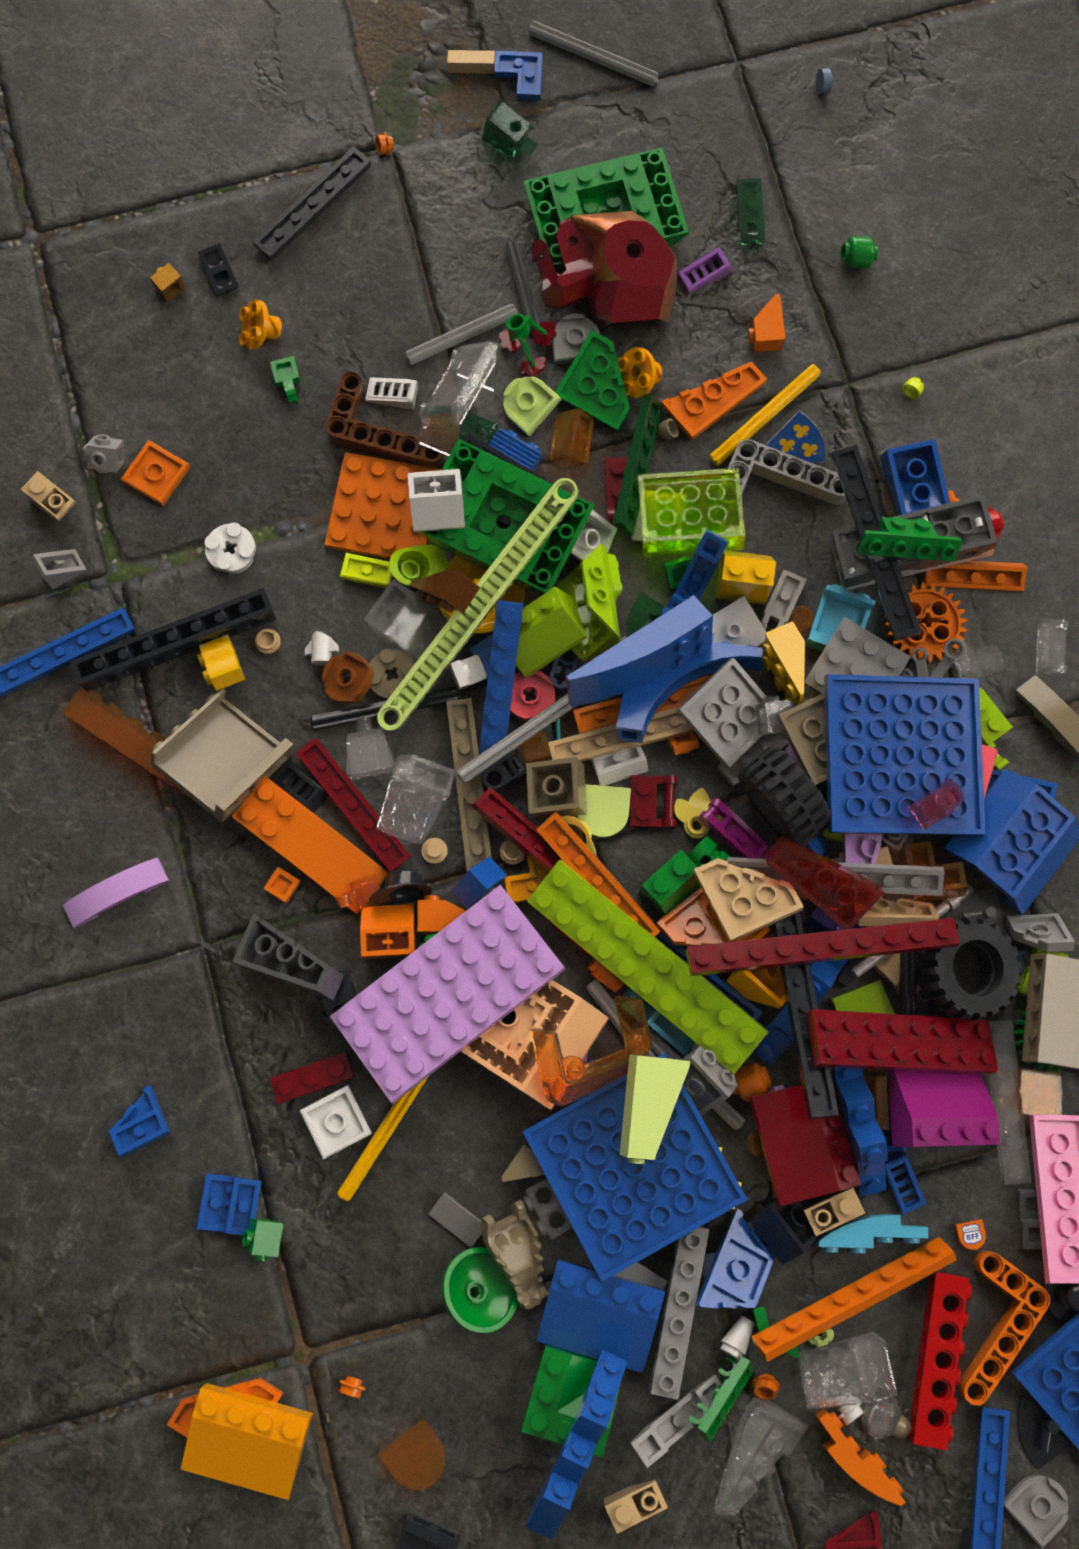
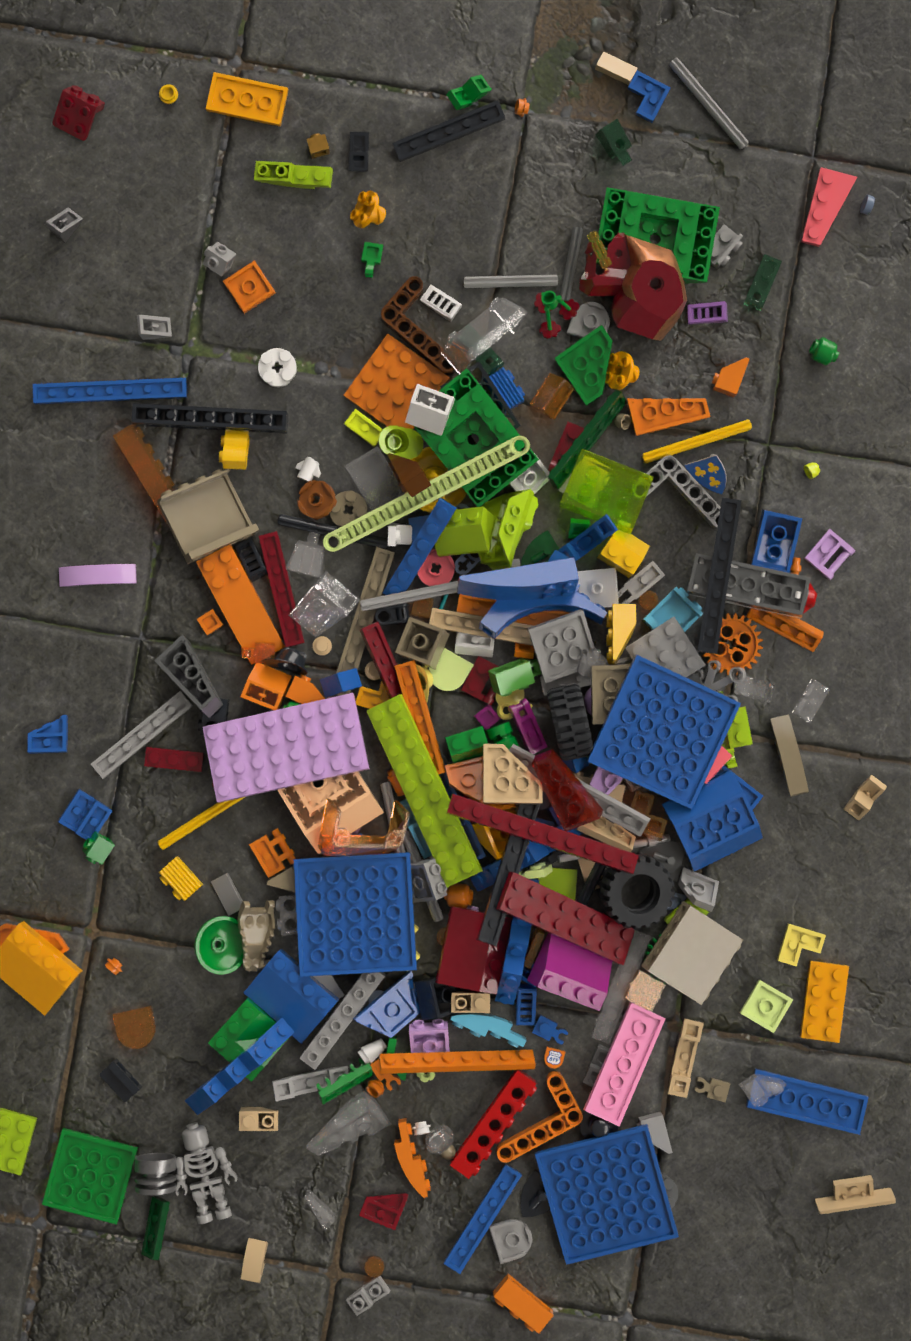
camera: 20 degrees right, 10 degrees up
(47, 496) = (167, 273): tan slope -> none
(60, 268) = (247, 99): none -> light orange plate
(150, 328) = (293, 175): none -> lime slope
(256, 1066) = (141, 735): none -> light grey plate
(268, 641) = (274, 446): tan plate -> none
(317, 155) = (469, 93): none -> green slope
(335, 1122) = (177, 795): white plate -> none
(387, 1228) = (180, 879): none -> yellow brick
(485, 1144) = (267, 855): none -> orange plate
(529, 402) = (533, 356): yellowish green tile -> none
(549, 243) = (599, 249): none -> clear yellow axle
(649, 1102) = (382, 880): yellowish green slope -> none
(677, 841) = (487, 717): none -> magenta tile
(686, 778) = (513, 676): none -> bright green brick
(687, 188) = (724, 243): none -> light grey bracket
(758, 1361) = (388, 1077): none -> orange plate
(776, 96) = (827, 199): none -> coral wing
(802, 1283) = (429, 1036): none -> lavender plate
(836, 999) = (536, 871): none -> yellowish green plate
(847, 1372) = (430, 1104): clear slope -> none
(909, 540) = (741, 586): green bracket -> none
(937, 803) = (667, 775): clear pink slope -> none
(943, 1201) = (547, 1028): none -> blue plate
(976, 468) = (825, 549): none -> lavender plate

